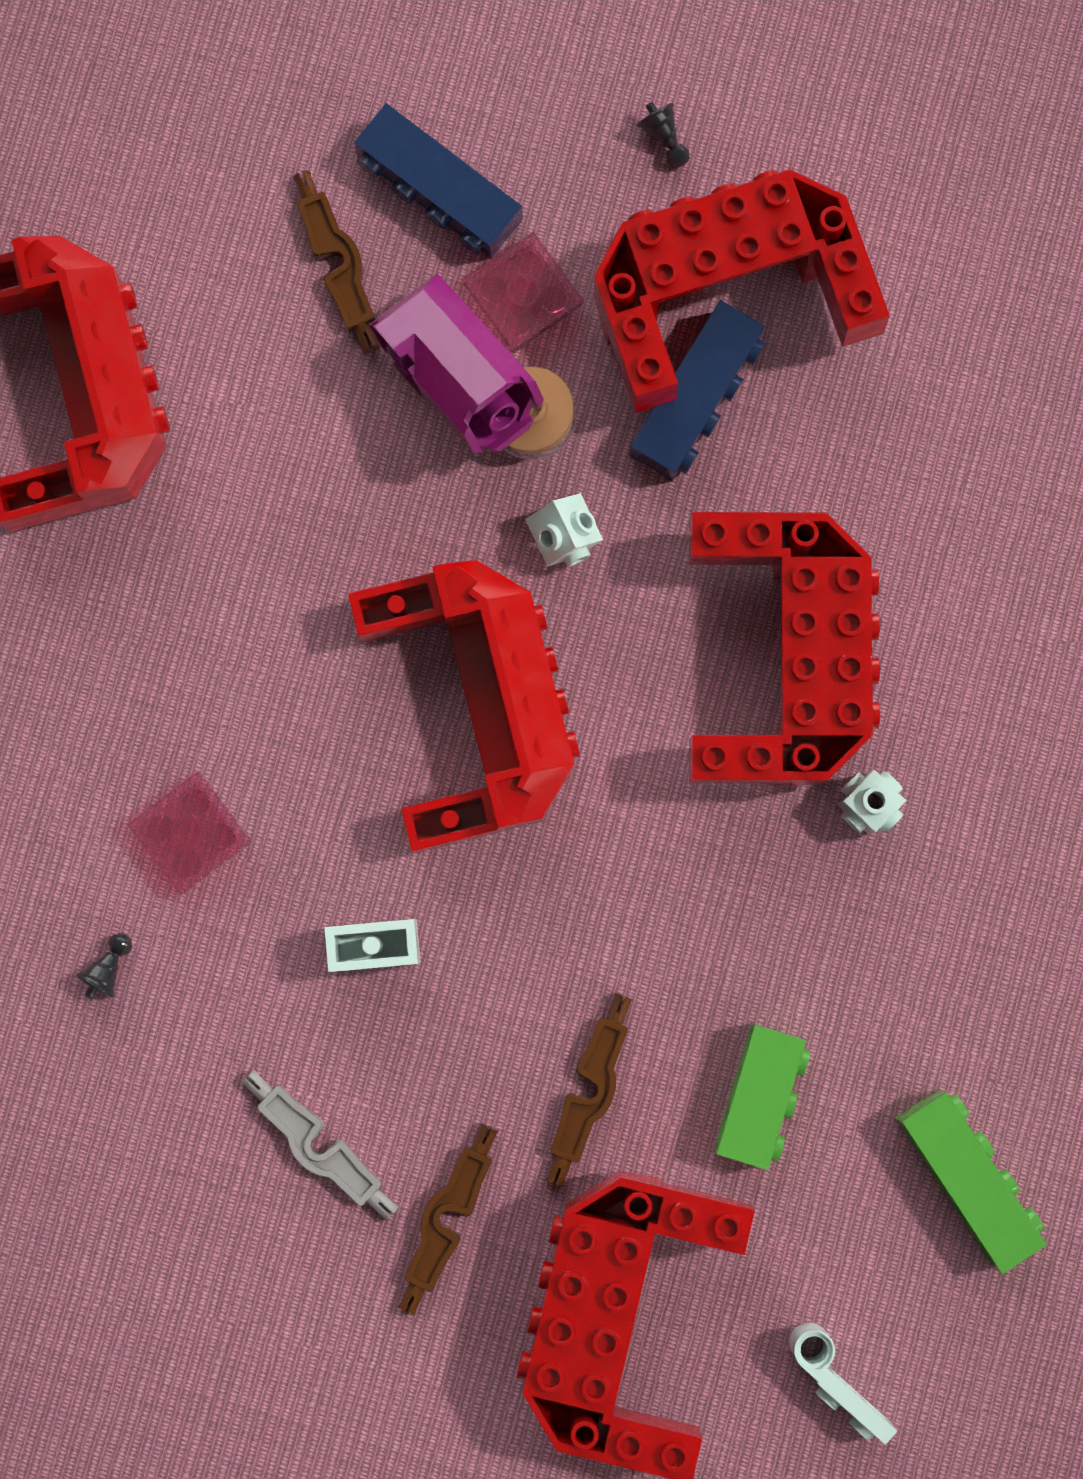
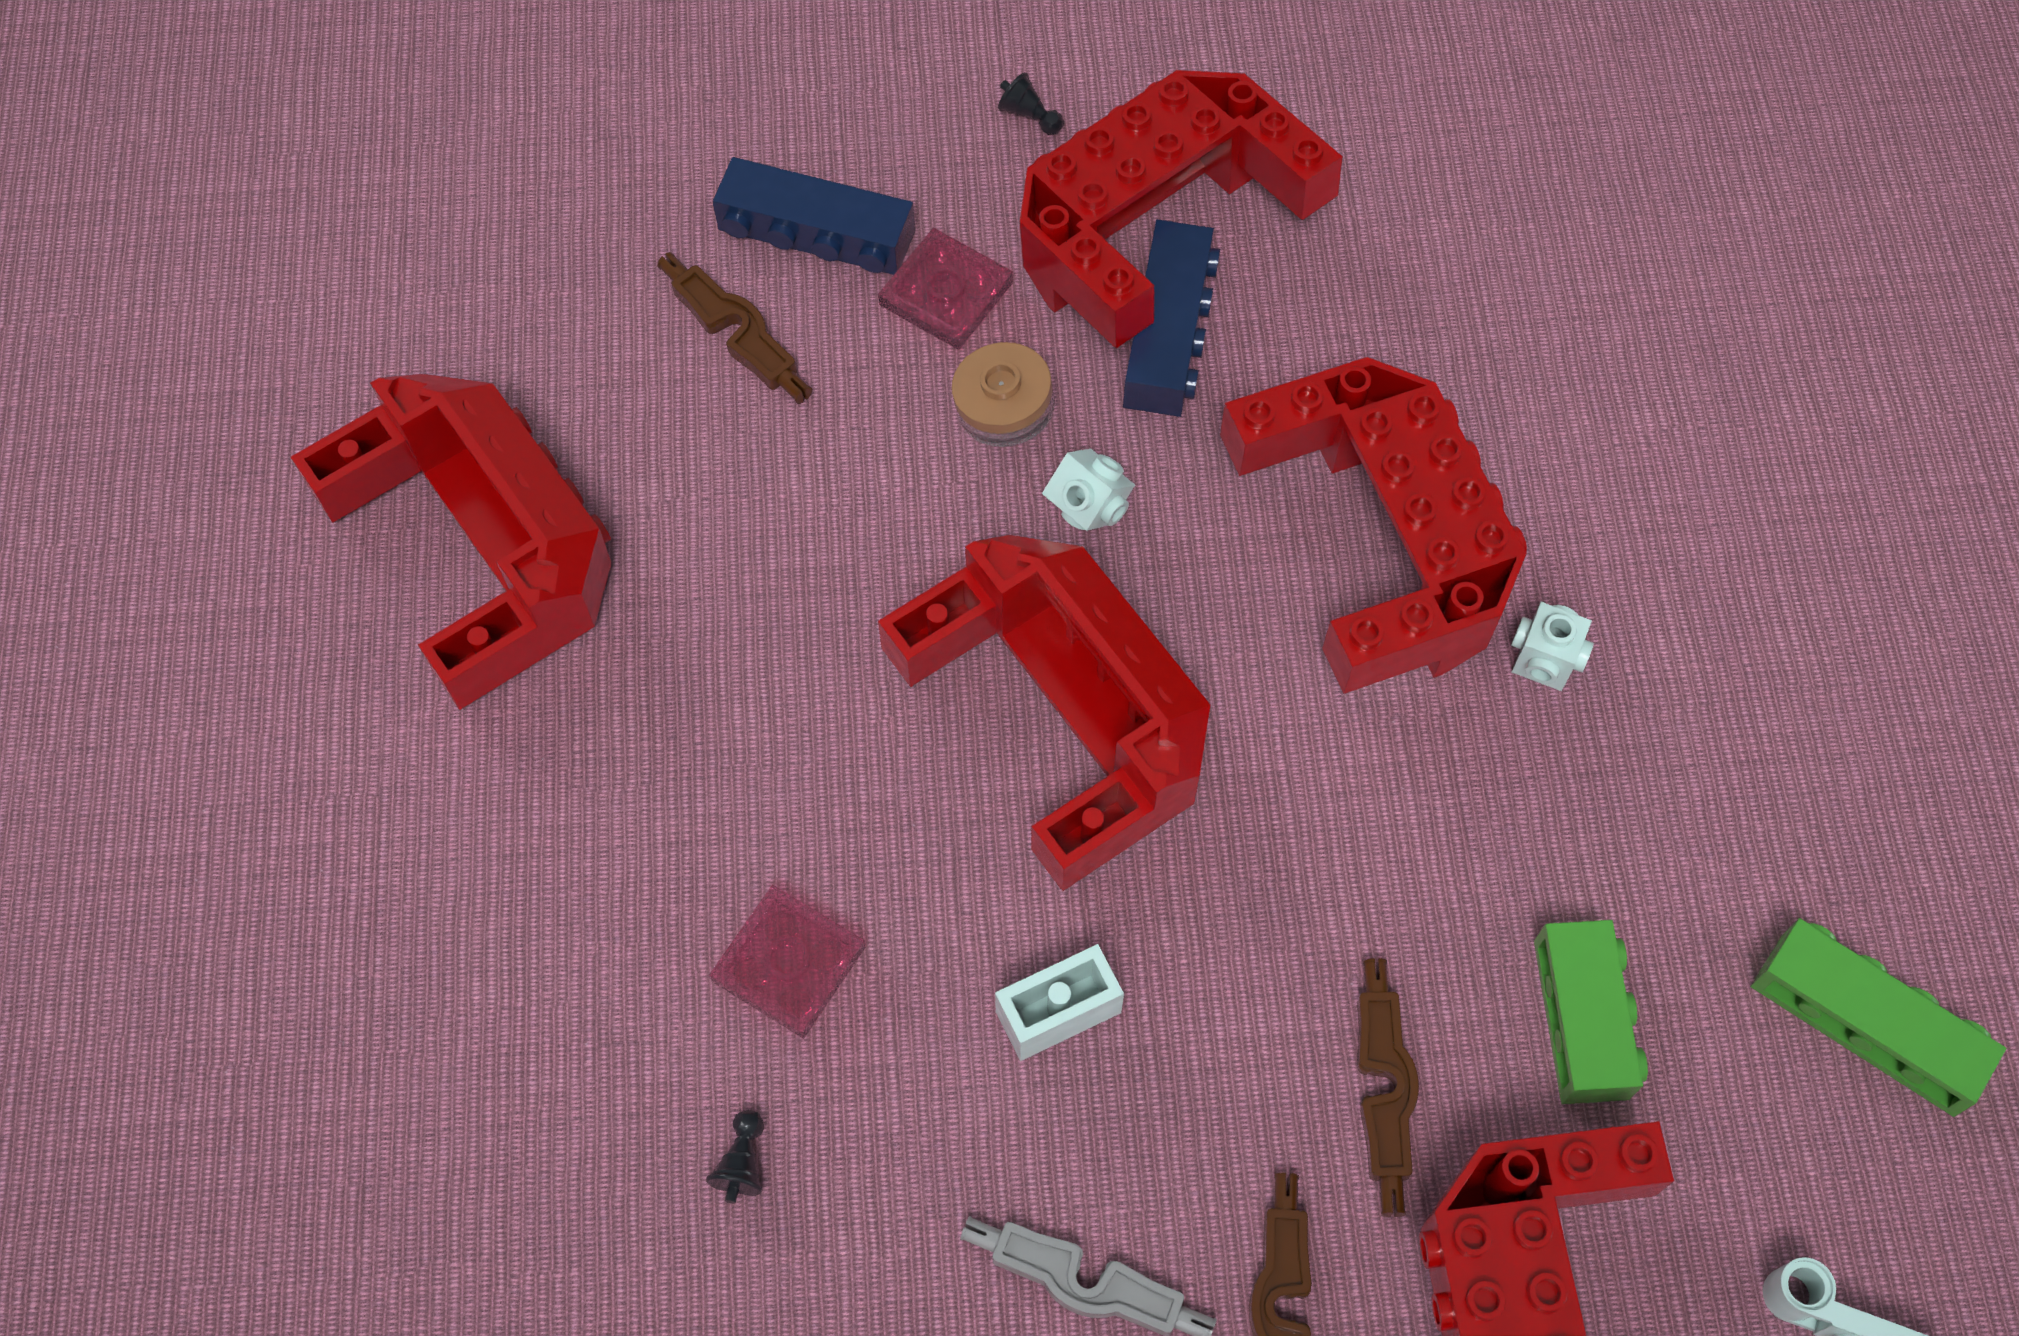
camera: 20 degrees left, 20 degrees down
(458, 366) = (909, 360): magenta brick -> none

